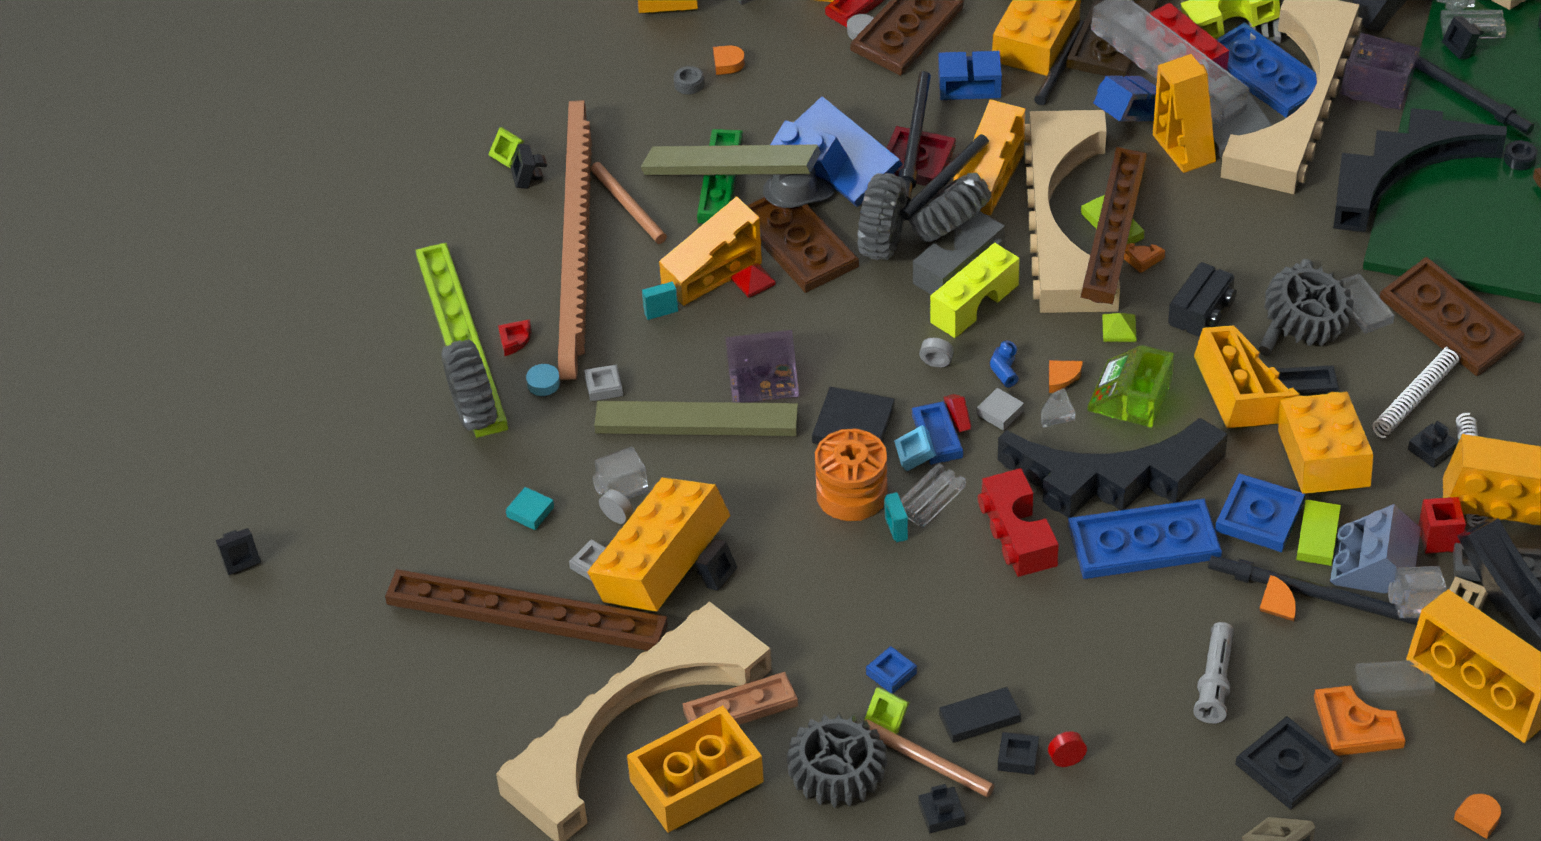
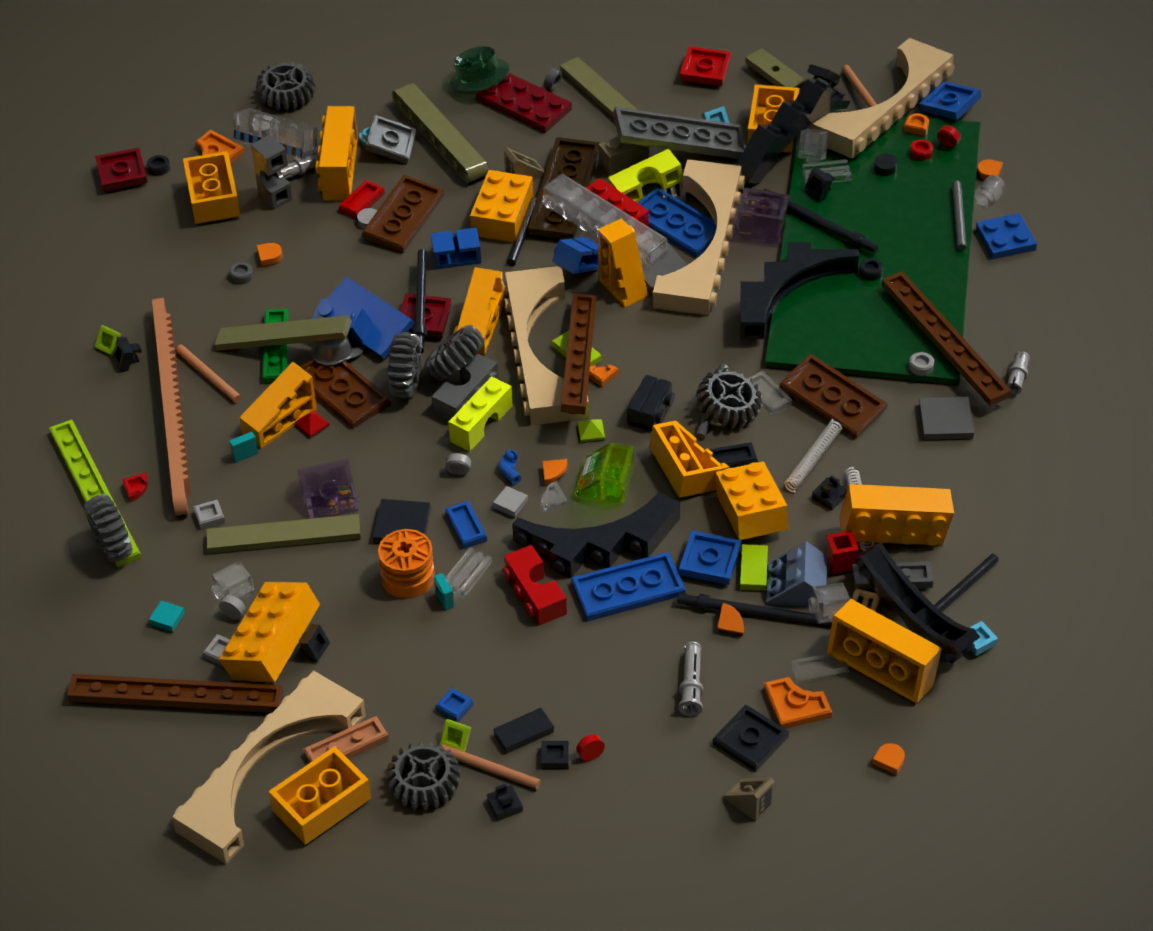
camera: 10 degrees left, 0 degrees up
(543, 379) = (162, 517): medium azure tile -> none
(915, 448) = (451, 538): medium azure tile -> none
(944, 177) = (447, 330): black bar -> none
(958, 412) = (479, 506): red tile -> none

